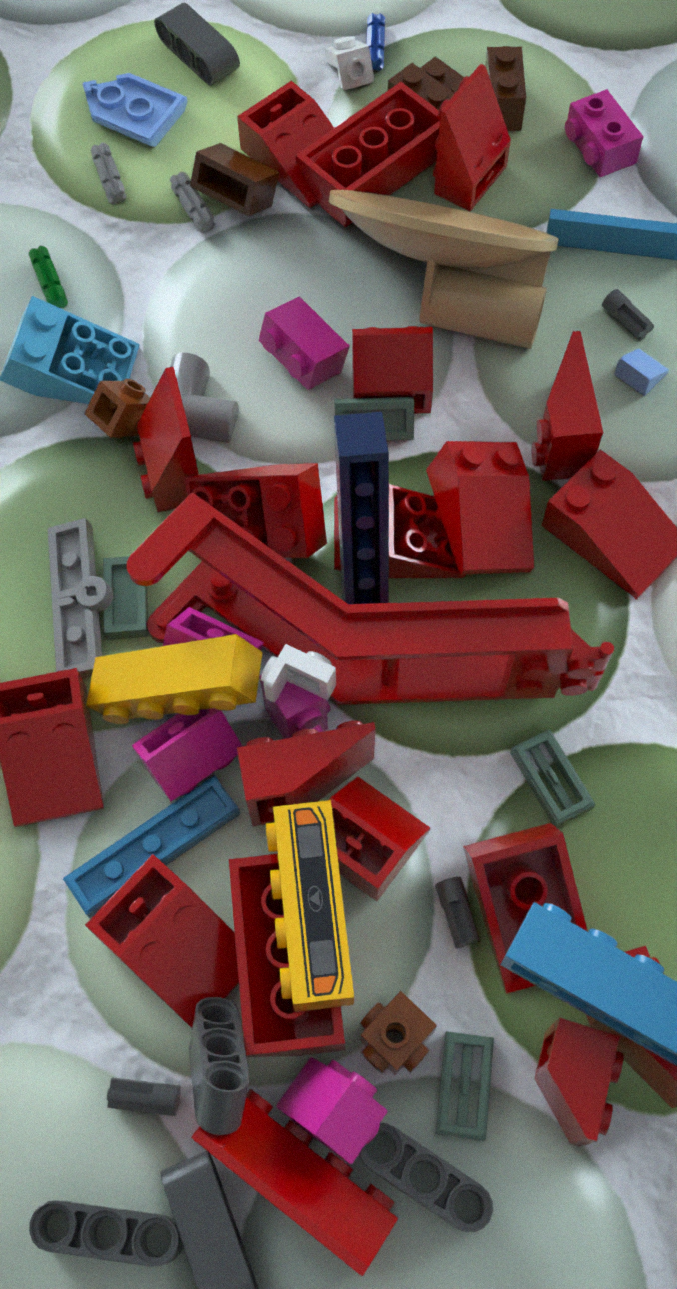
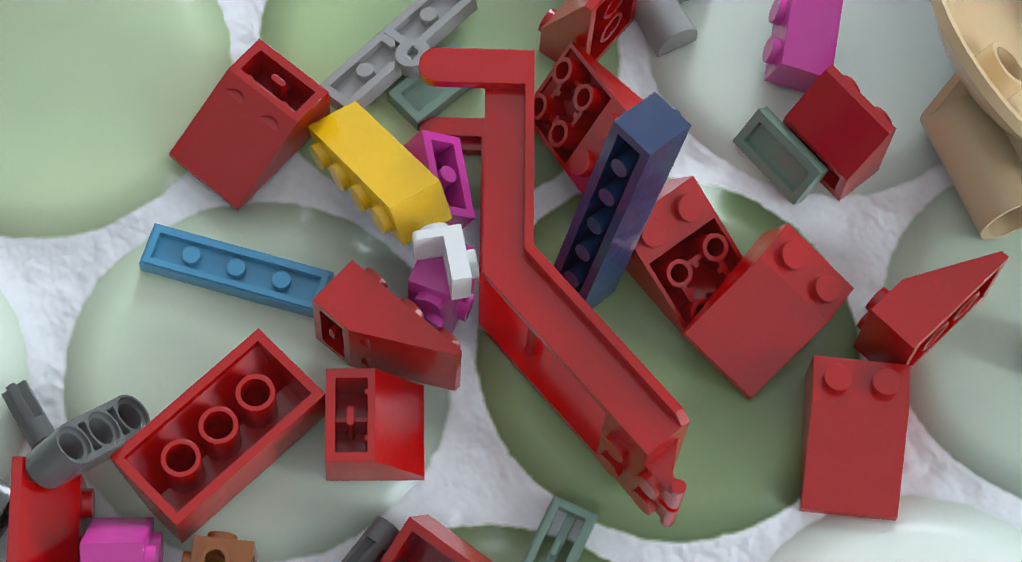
camera: 45 degrees right, 0 degrees up
(169, 938) = (163, 331): red slope -> none
(187, 750) = (330, 231): dark pink brick -> none
(312, 907) = (264, 414): brick -> none

